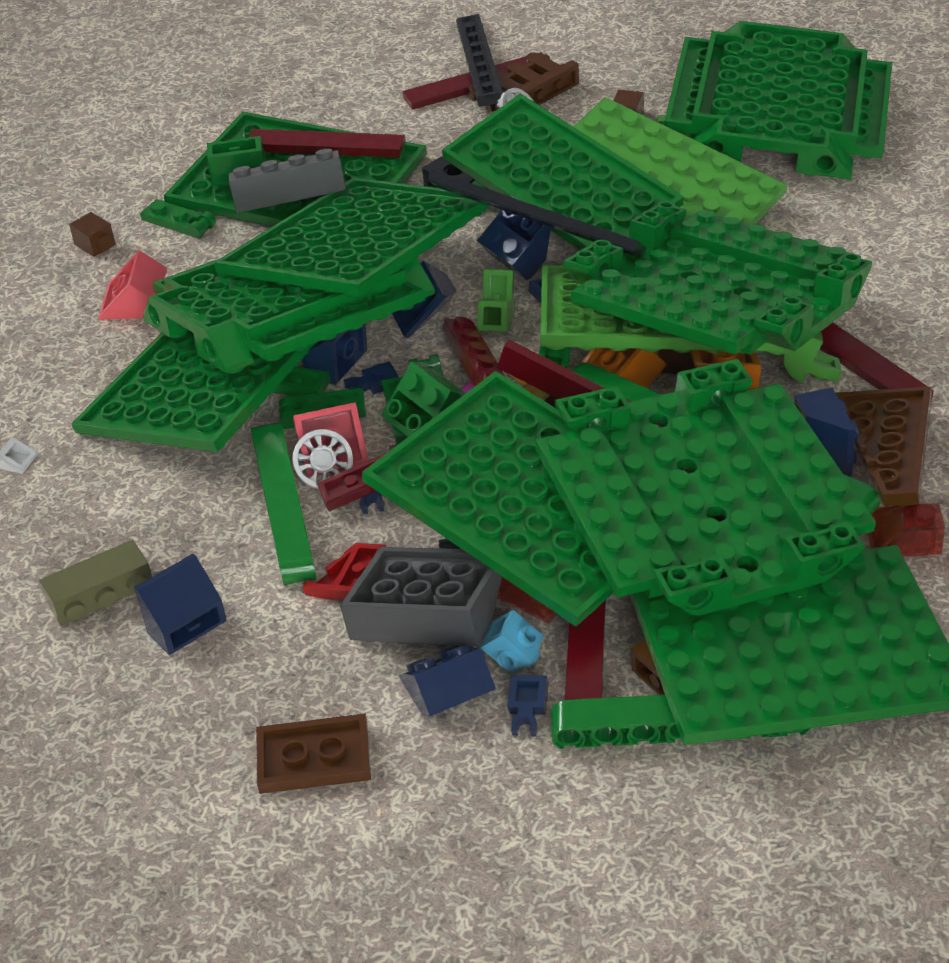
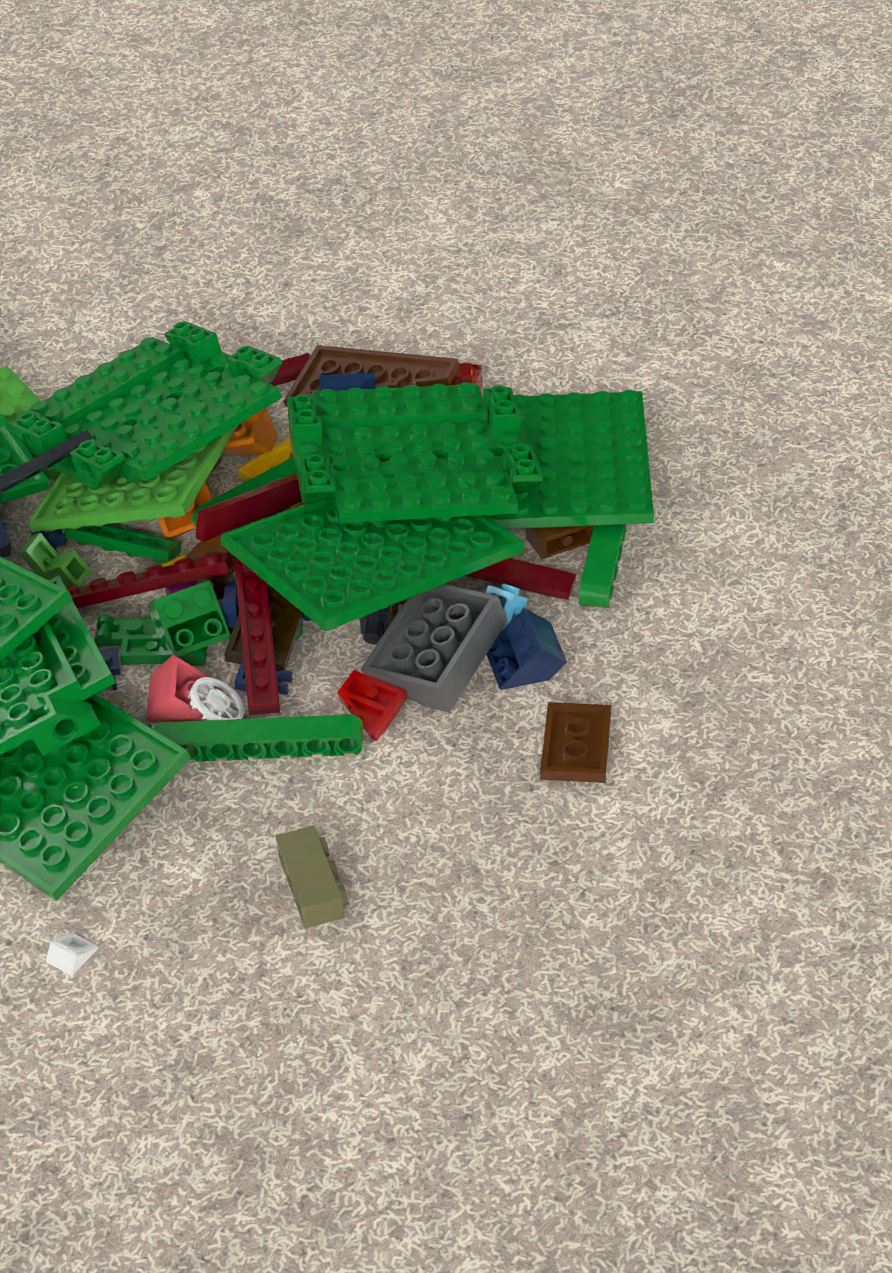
camera: 80 degrees left, 0 degrees up
(180, 604) = (379, 809): dark blue slope -> none
(307, 403) = (133, 692): green plate -> none
(527, 699) = (562, 611): dark blue plate -> none

